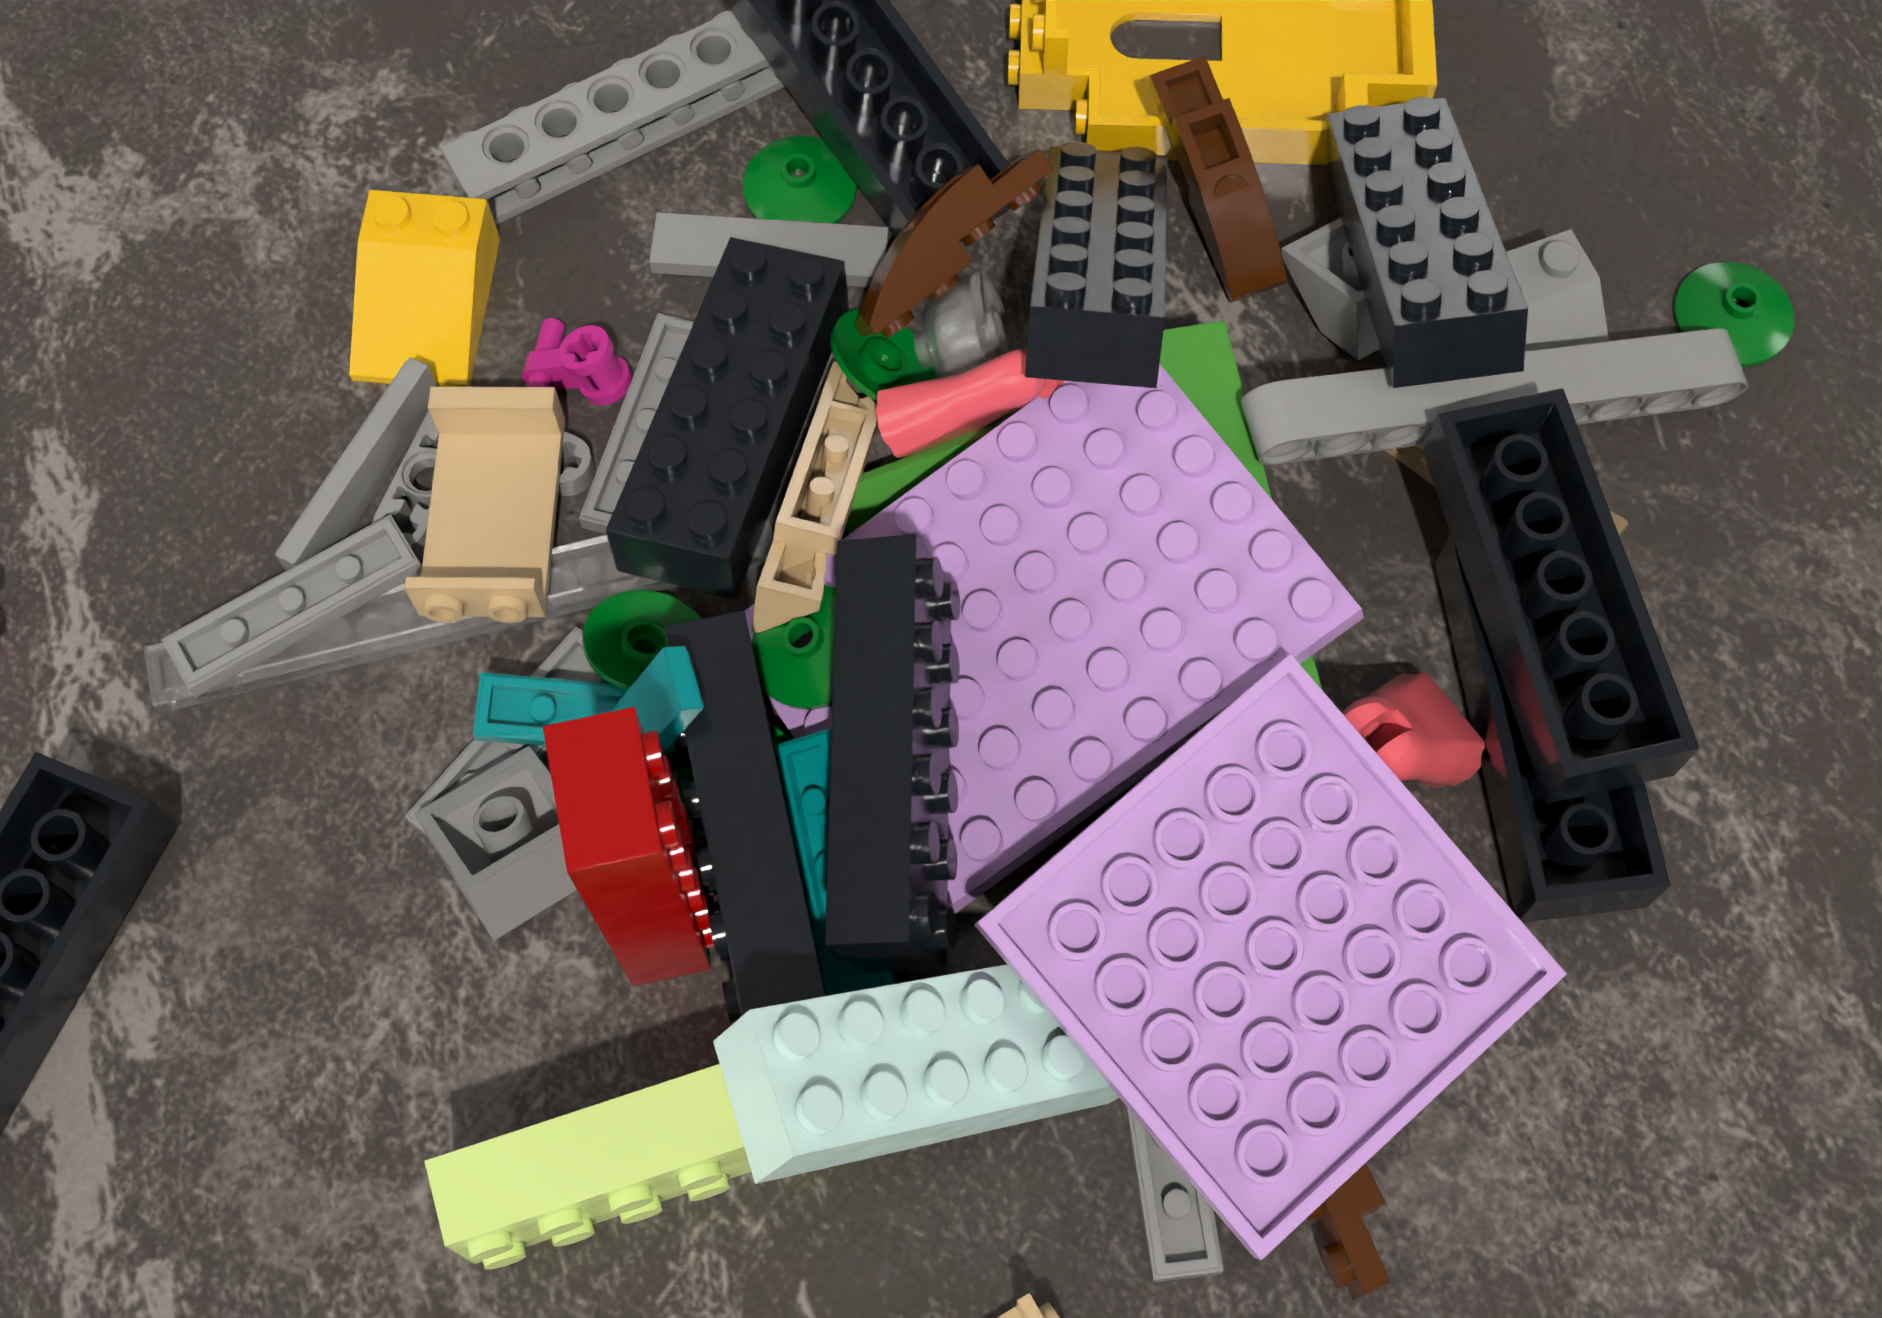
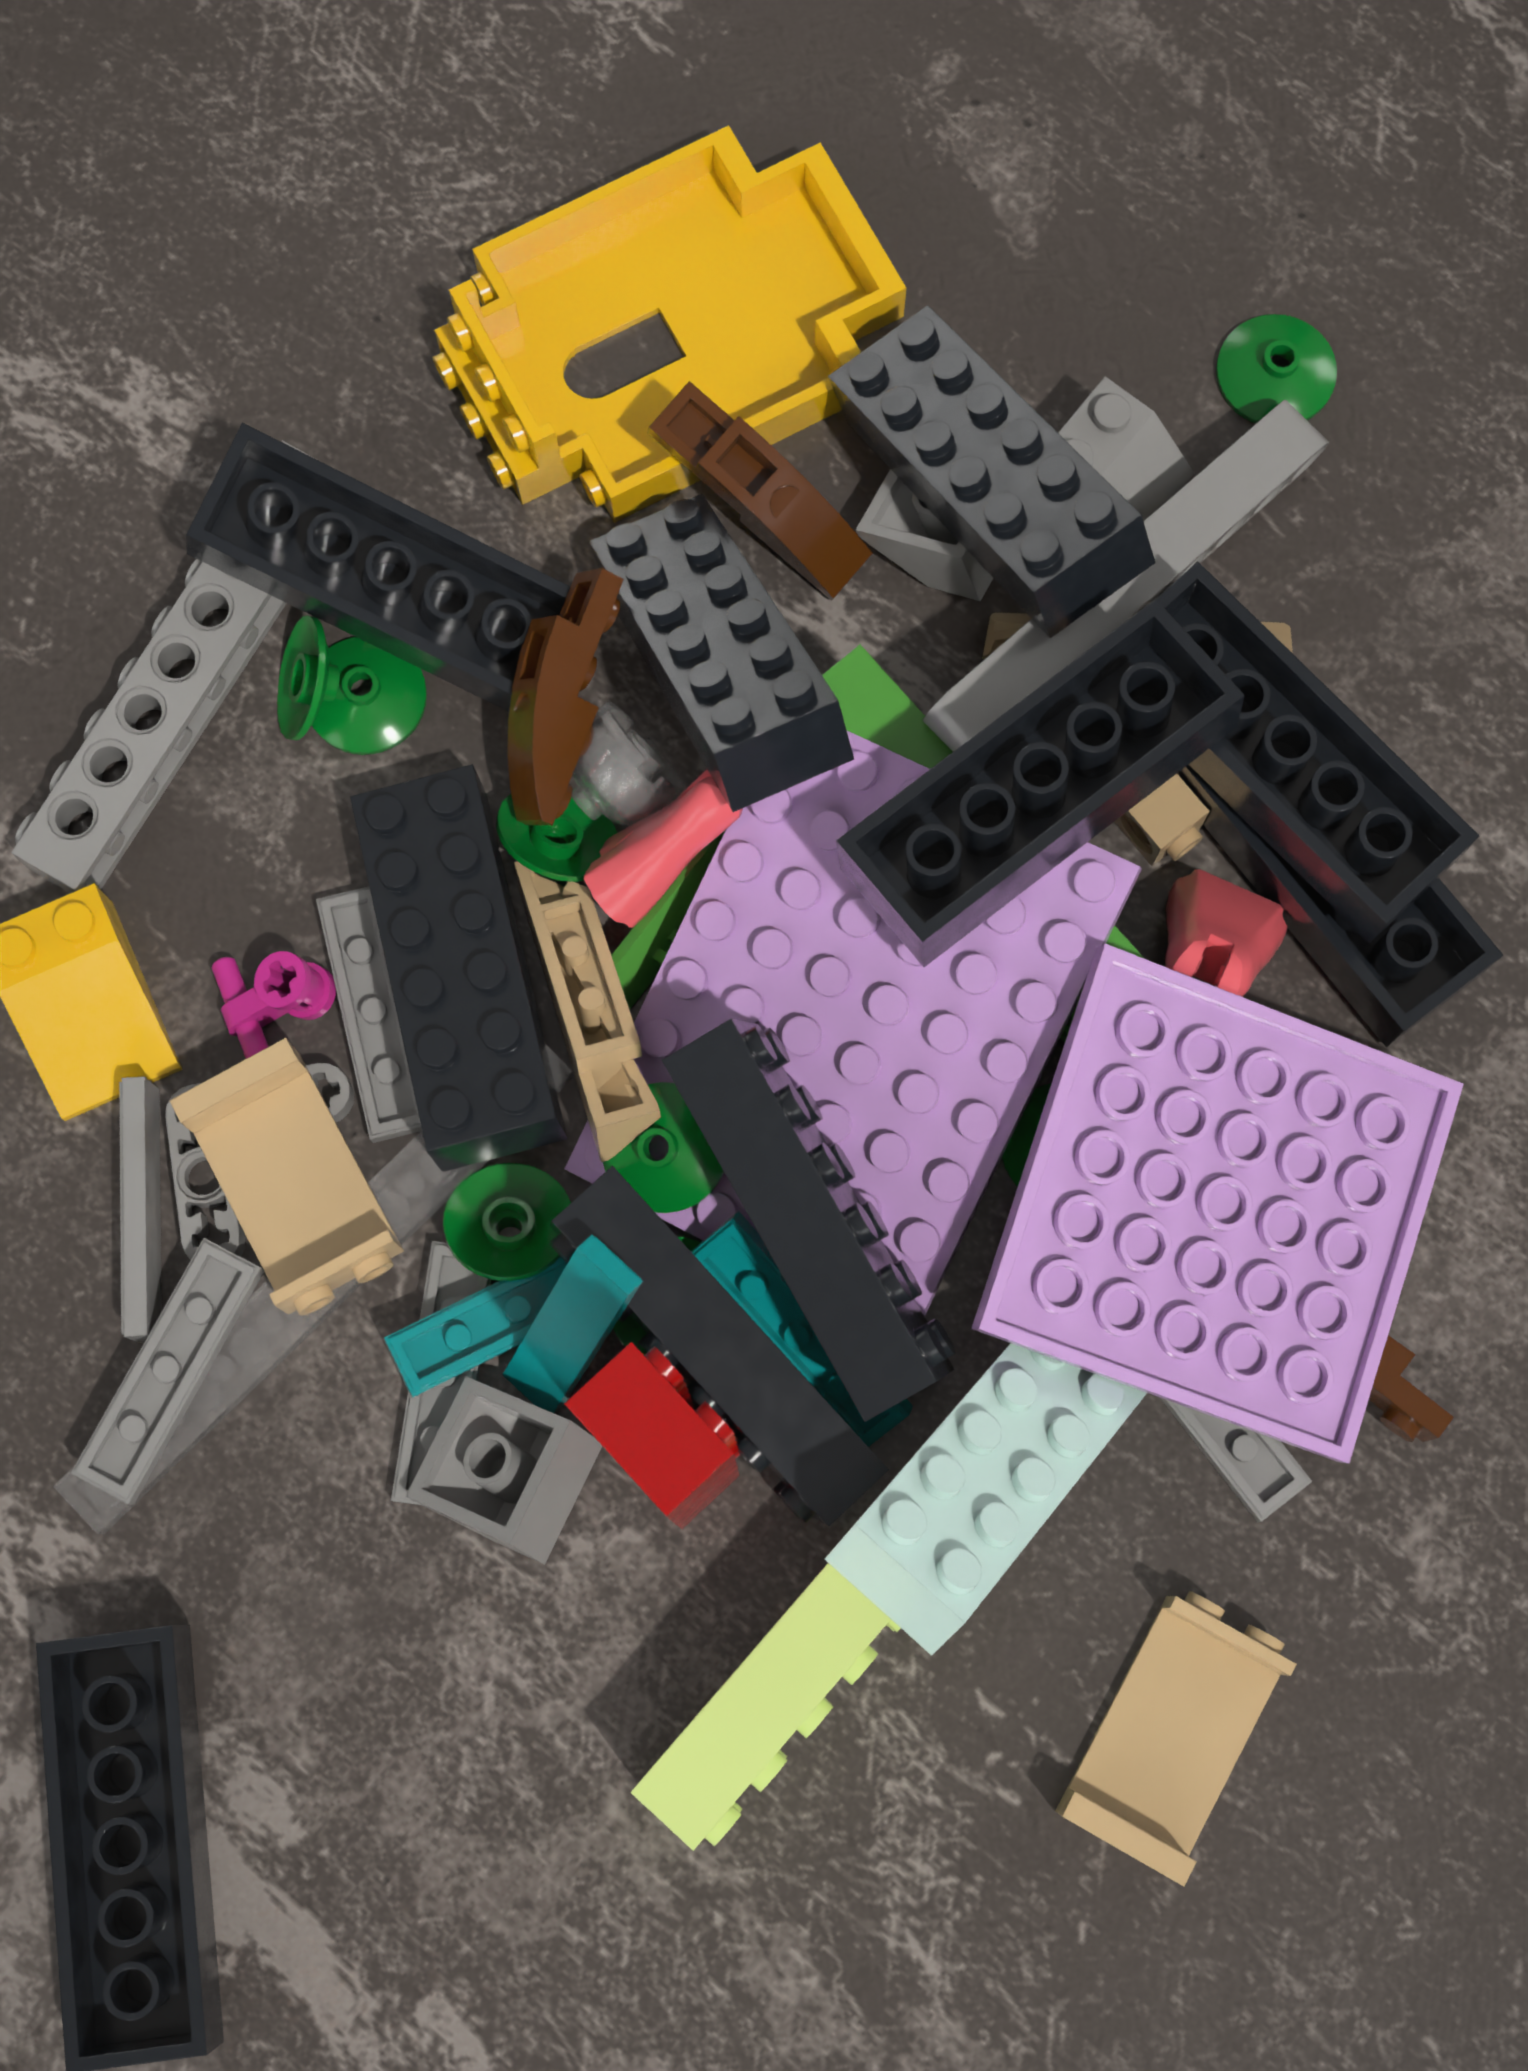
camera: 30 degrees left, 10 degrees up
(696, 243) = (321, 802): light grey tile -> none
(760, 143) = (305, 678): none -> green dish
(1309, 480) = (1039, 782): none -> black brick
(1416, 608) = (1165, 822): none -> tan brick

